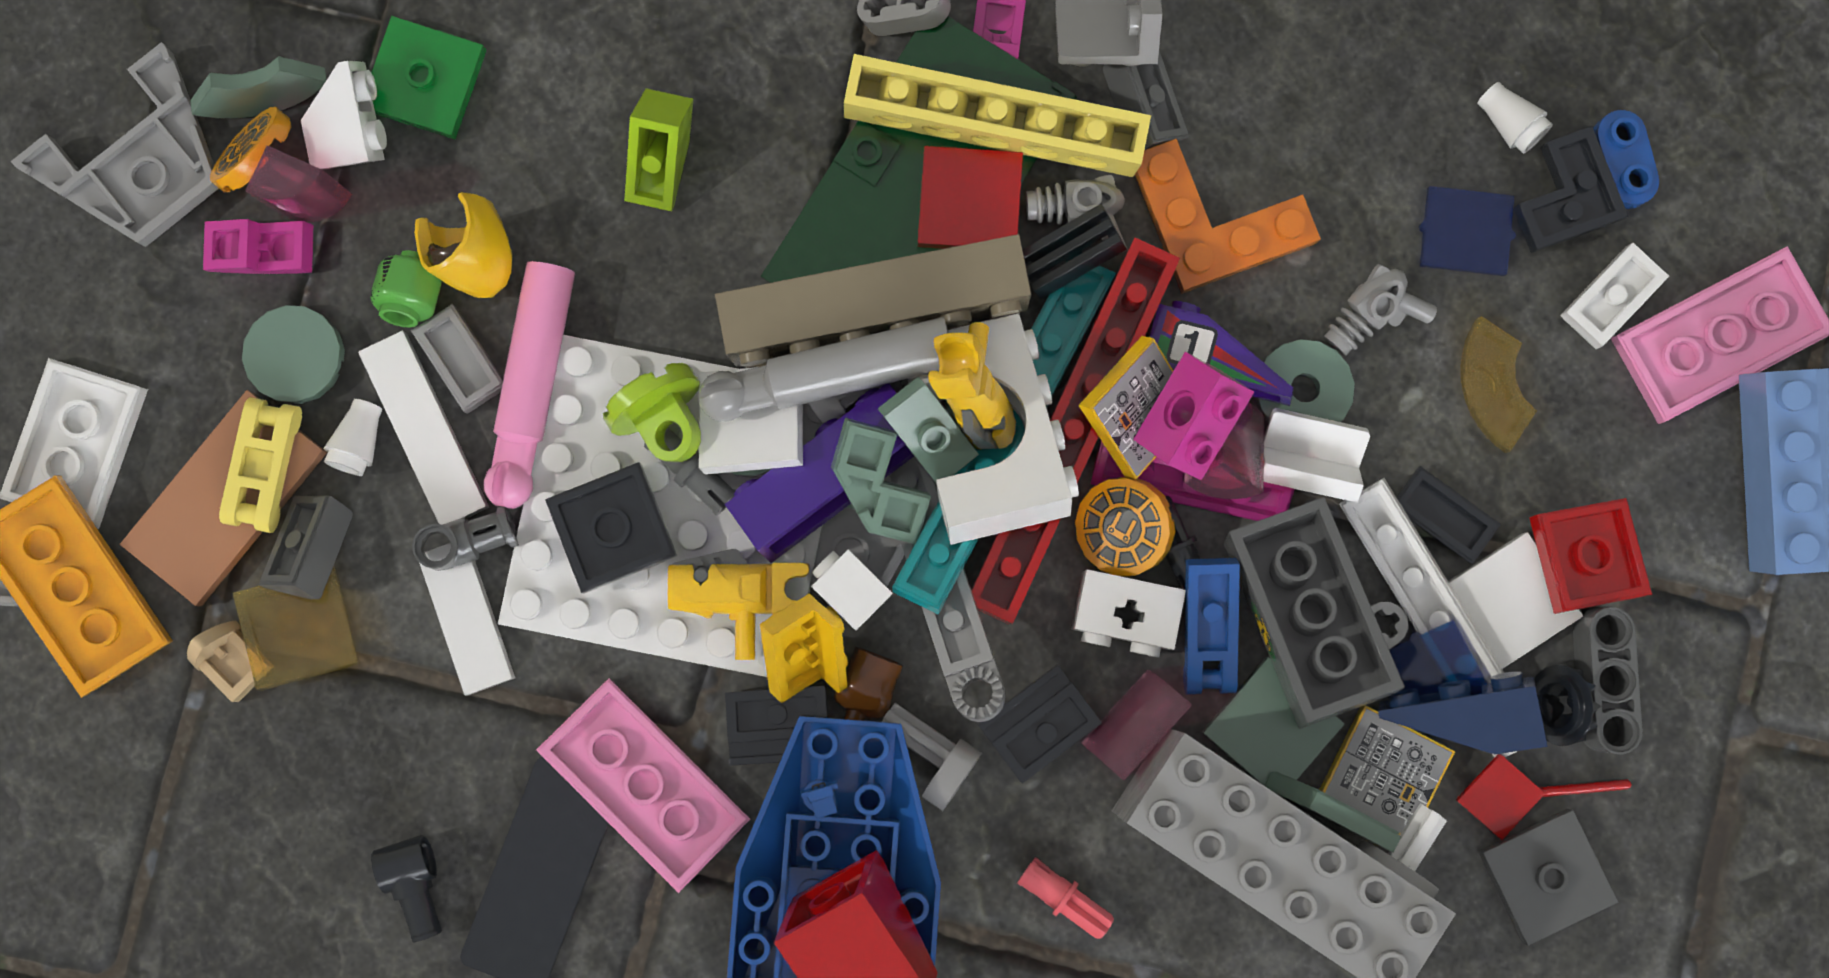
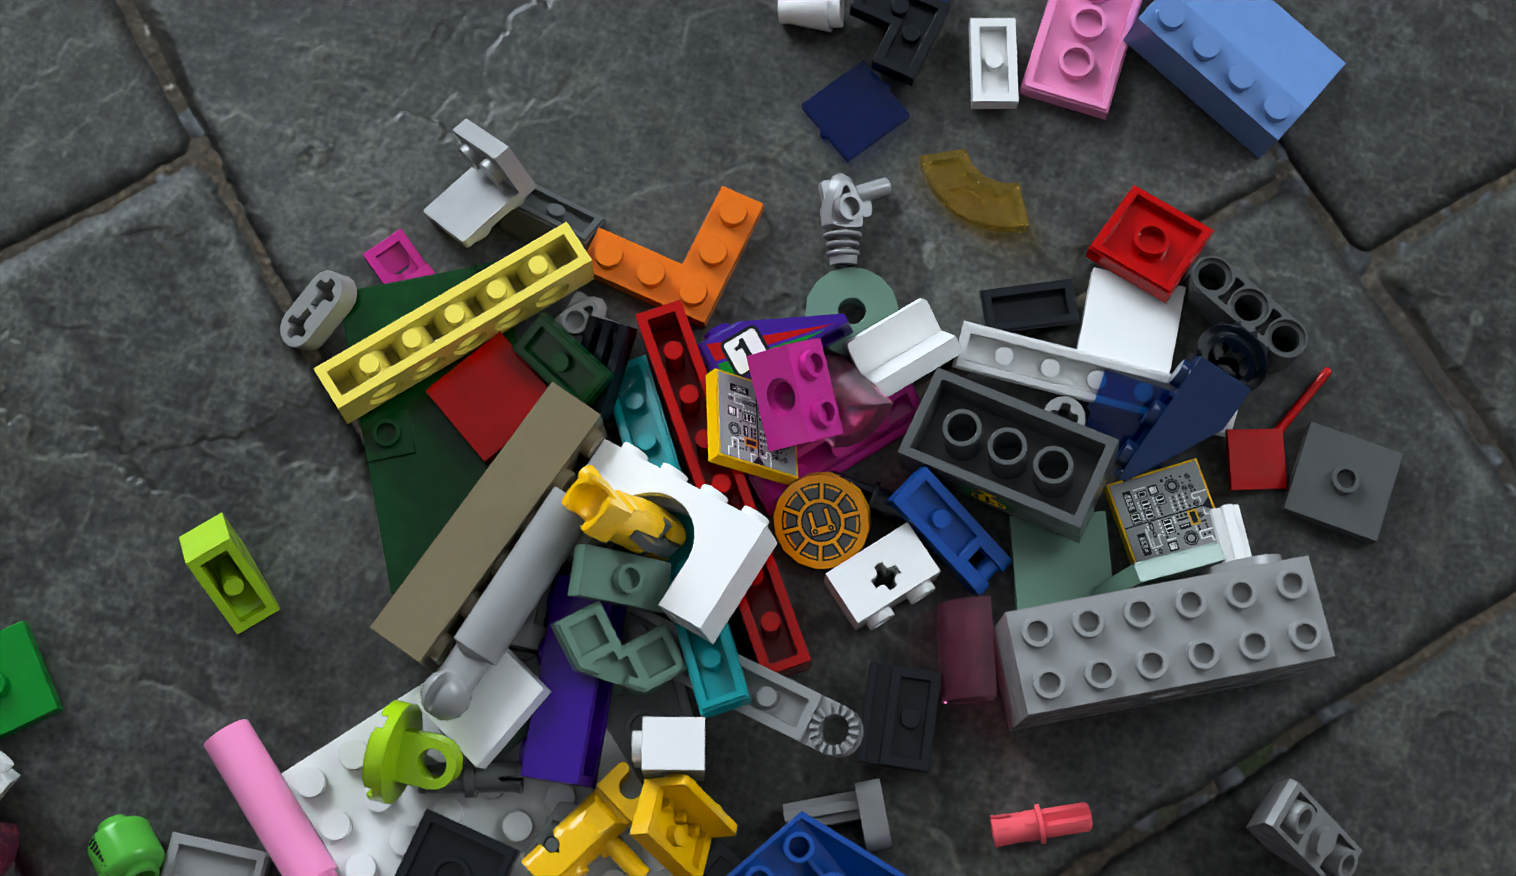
camera: 45 degrees left, 10 degrees down
(469, 257) = (156, 784): yellow piece -> none
(870, 685) = (752, 809): reddish brown piece -> none
(1046, 222) = (562, 360): none -> dark green plate

